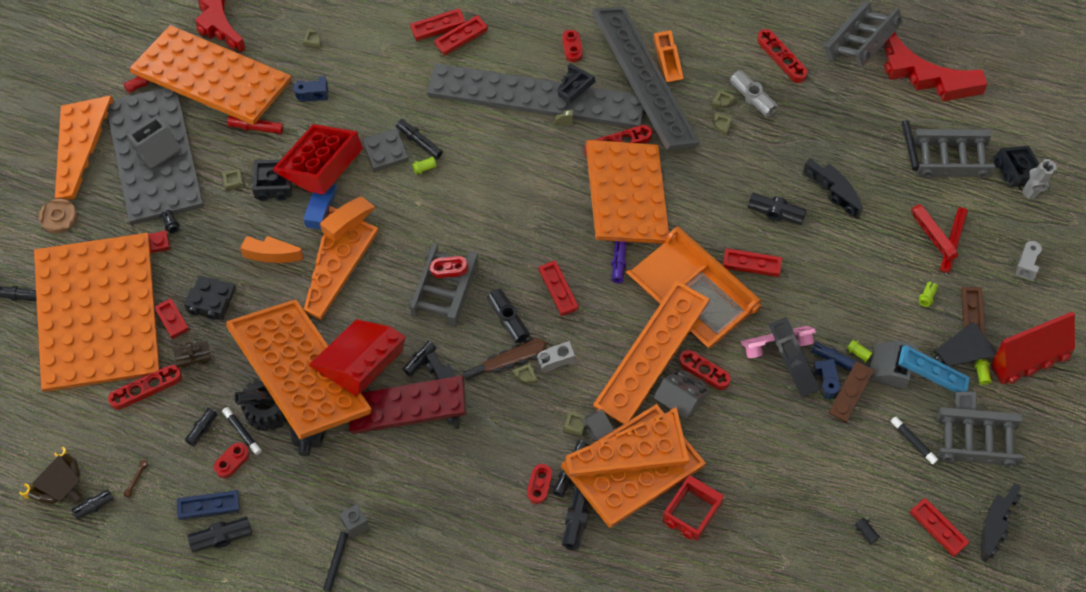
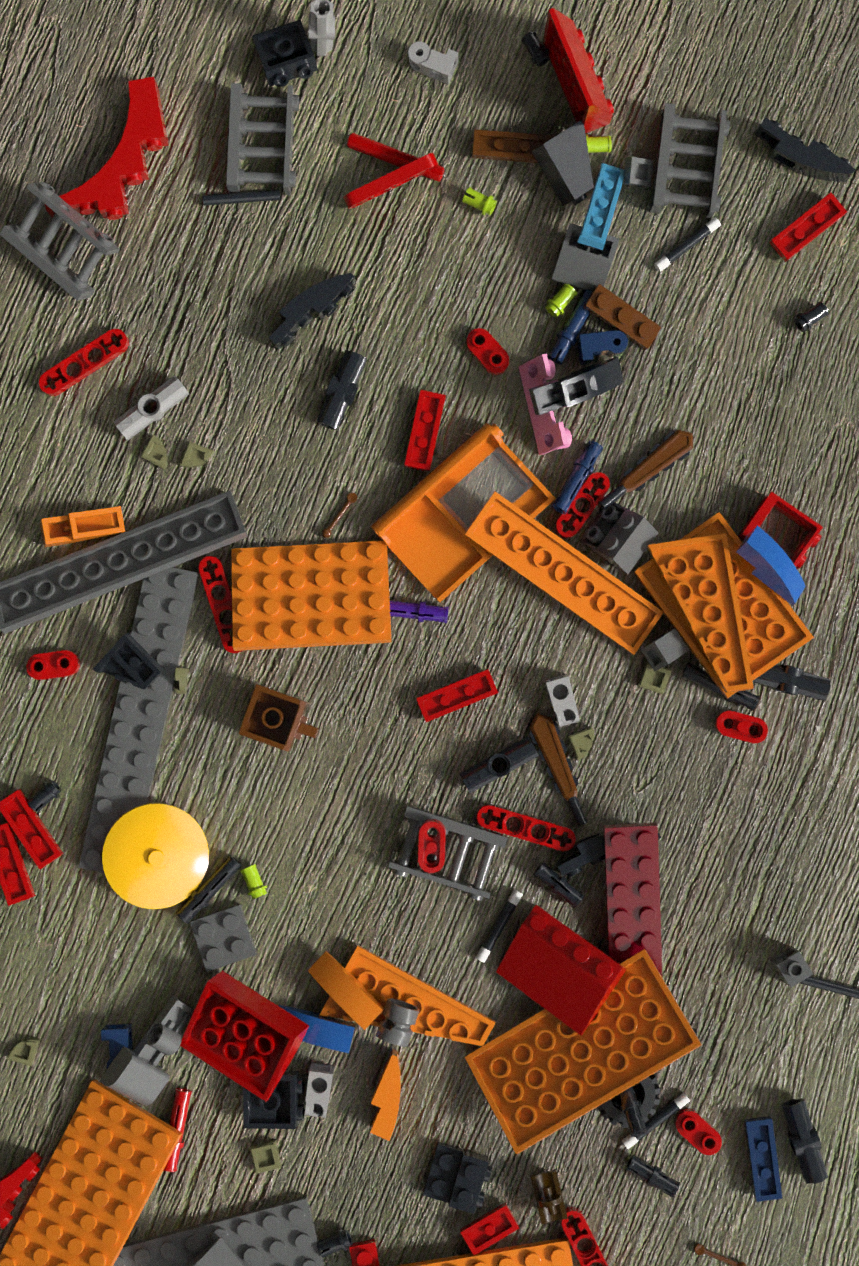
camera: 90 degrees left, 25 degrees up
(277, 208) = (318, 1089): none -> light grey leg
(297, 98) = (137, 1071): none -> dark grey plate
(321, 248) = (397, 1022): none -> dark grey wheel
(389, 321) = (499, 925): none -> black bar
(443, 105) = (155, 855): none -> yellow dish
(459, 336) = (524, 831): none -> red beam
(486, 45) = (44, 795): none -> black pin
(538, 171) = (276, 719): none -> reddish brown hinge
(665, 493) = (772, 565): none -> blue slope
(699, 220) = (351, 498): none -> reddish brown hinge
(725, 363) = (582, 467): none -> dark blue pin
(745, 424) = (661, 458): none -> reddish brown sword
(816, 302) = (486, 351): none -> red plate

